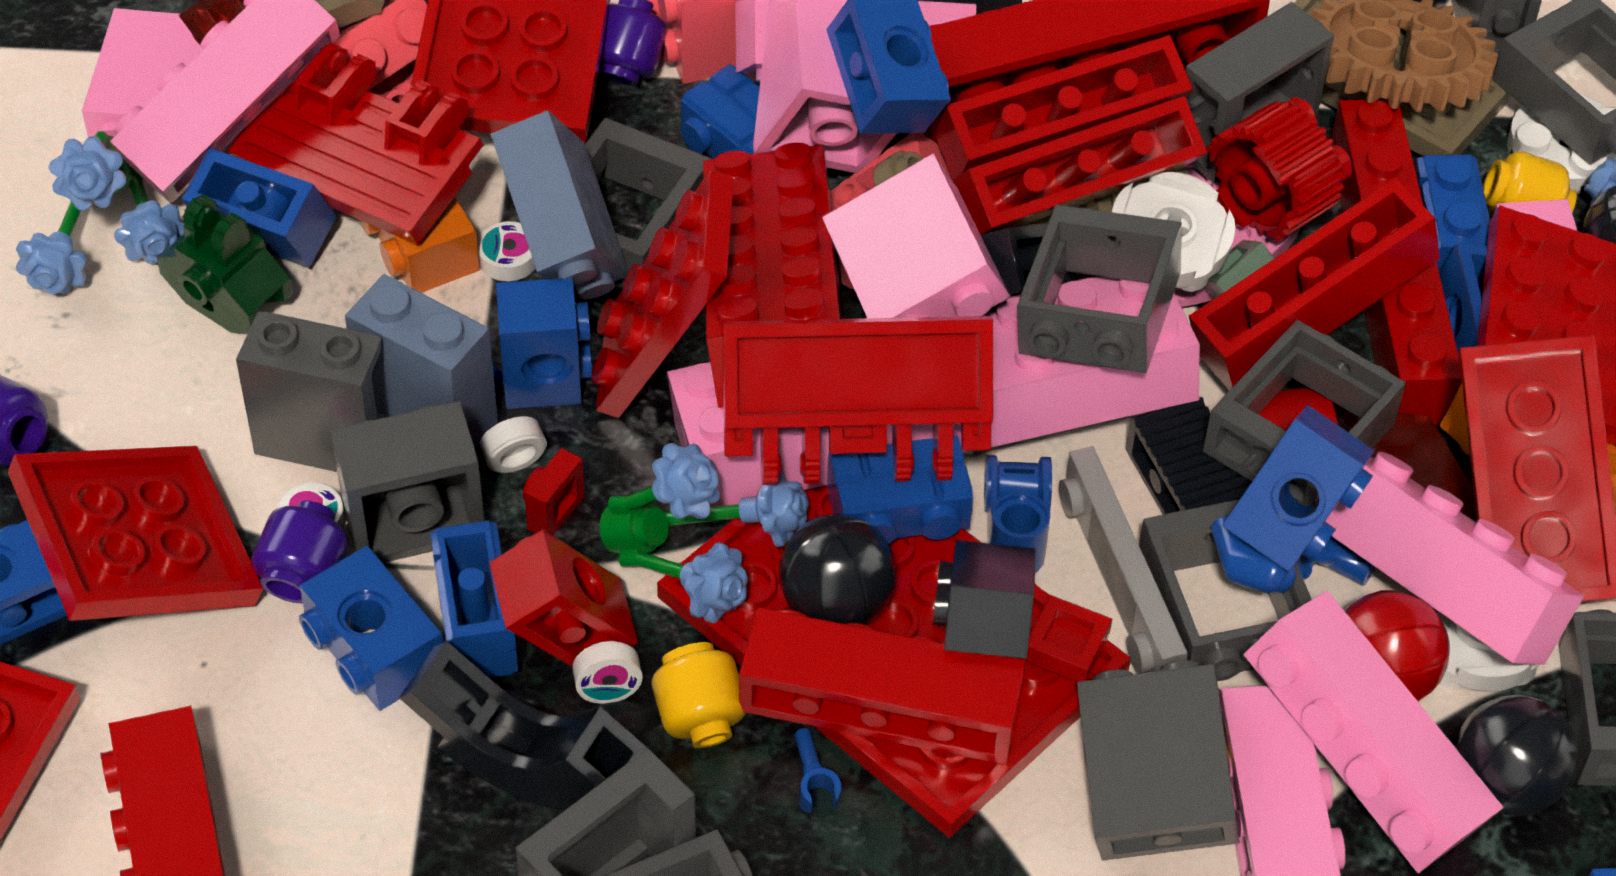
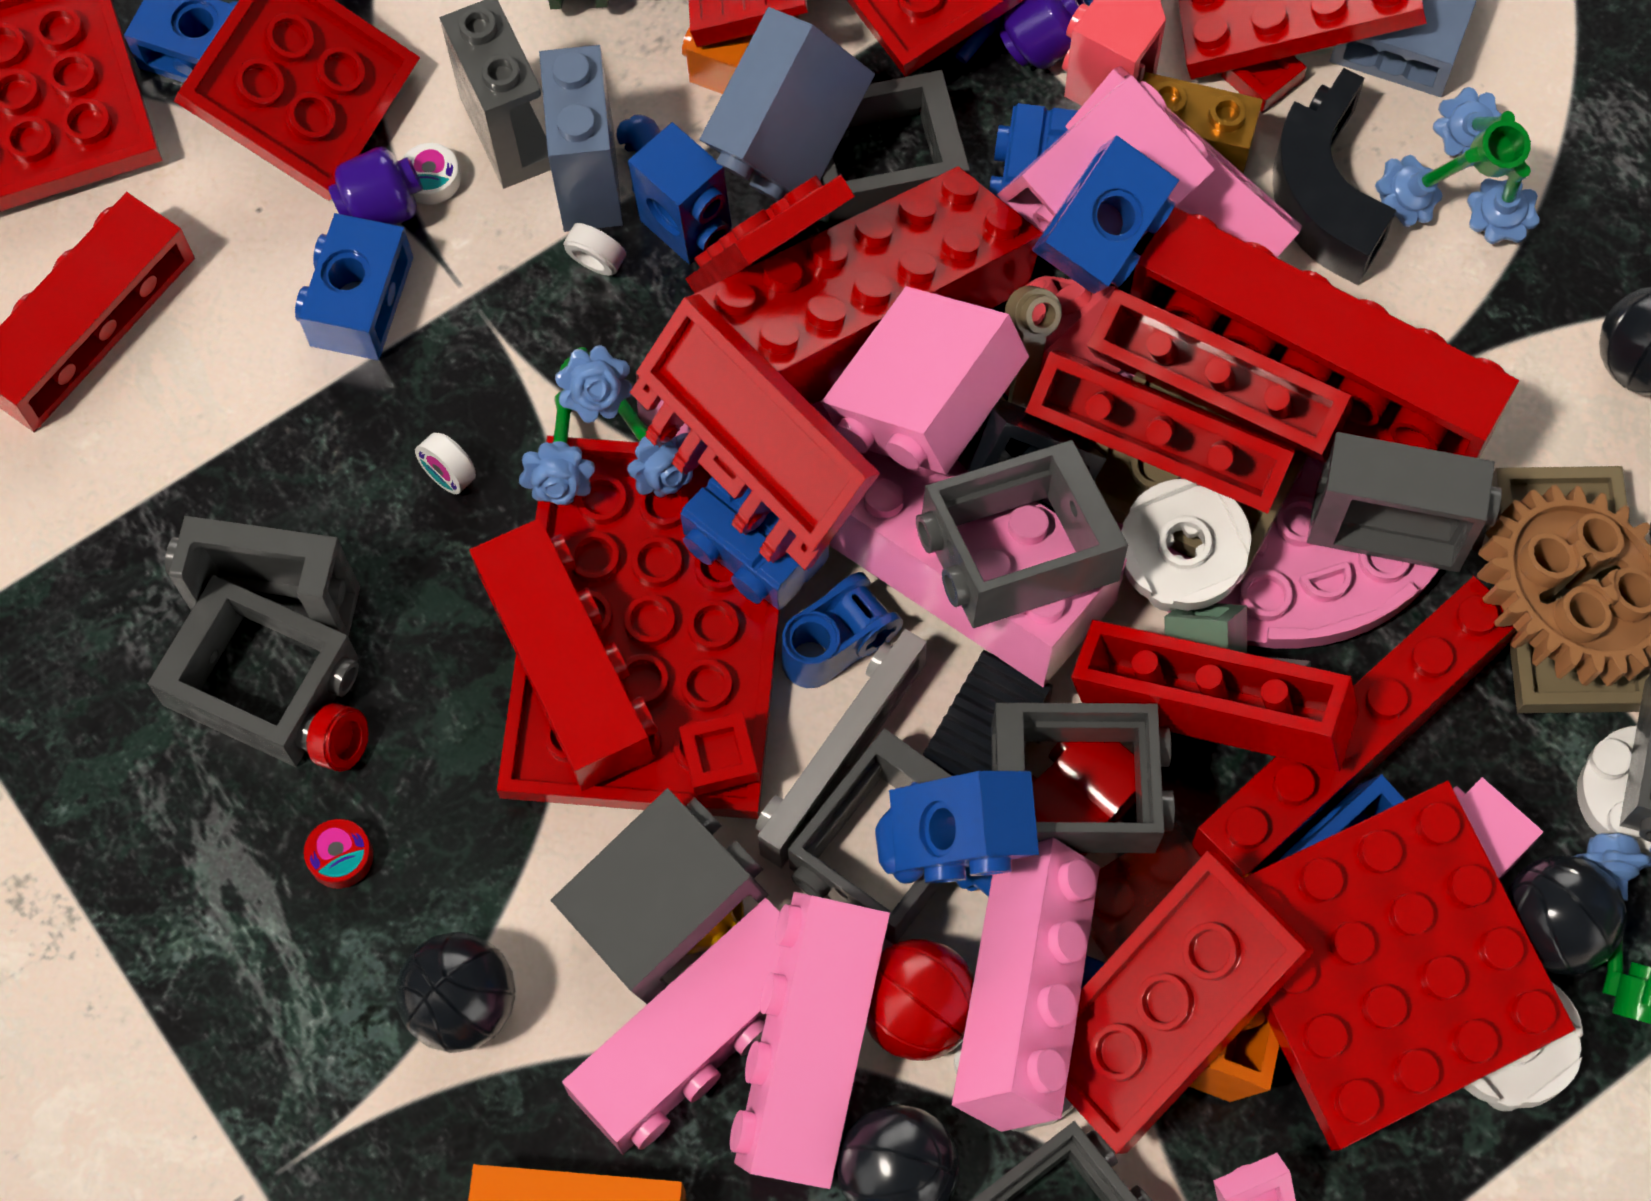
camera: 55 degrees right, 15 degrees up
(407, 479) = (479, 209): dark grey brick -> none
(470, 598) = (421, 330): blue brick -> none
(510, 743) = (331, 443): black arch -> none
(554, 492) = (571, 309): red plate -> none
(560, 598) = (429, 373): red brick -> none
(698, 694) = (464, 525): yellow head -> none
(814, 774) = (478, 667): blue hand -> none
(838, 570) = (628, 548): black piece -> none
(986, 599) = (684, 670): black brick -> none
(1278, 168) = (1330, 580): red brick -> none
(1456, 198) = (1446, 744): blue brick -> none
(1526, 179) = (1544, 791): yellow head -> none

